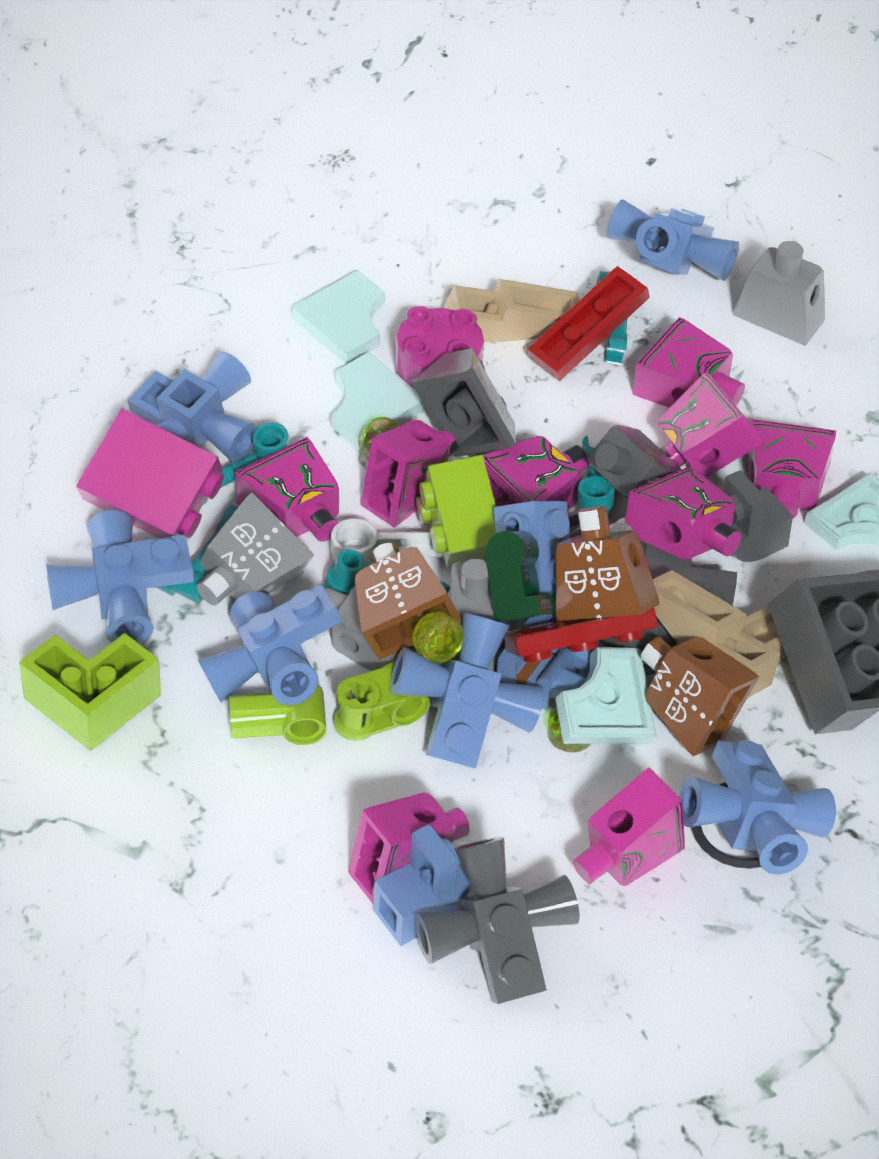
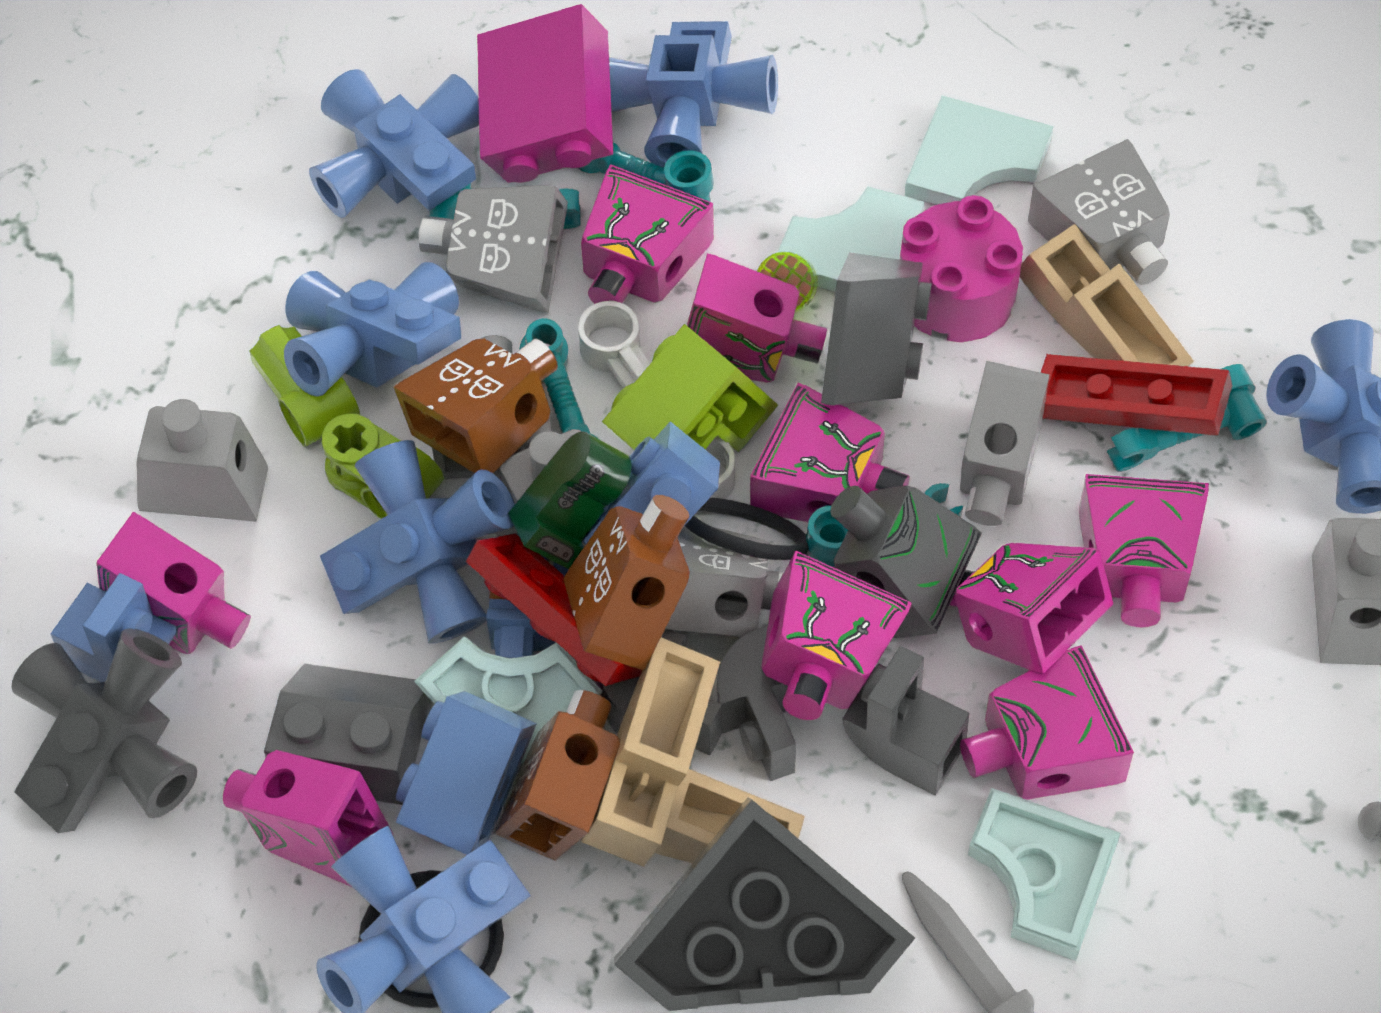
camera: 65 degrees right, 10 degrees up
(90, 695) = (215, 201): lime brick -> none
(309, 791) = (199, 464): none -> light grey torso
(438, 637) = (438, 464): clear neon green tile -> none
(441, 263) = (1111, 205): none -> light grey torso
(566, 792) = (352, 722): none -> dark grey slope
(582, 388) = (1002, 440): none -> light grey torso
(658, 733) = (463, 771): none -> medium blue brick

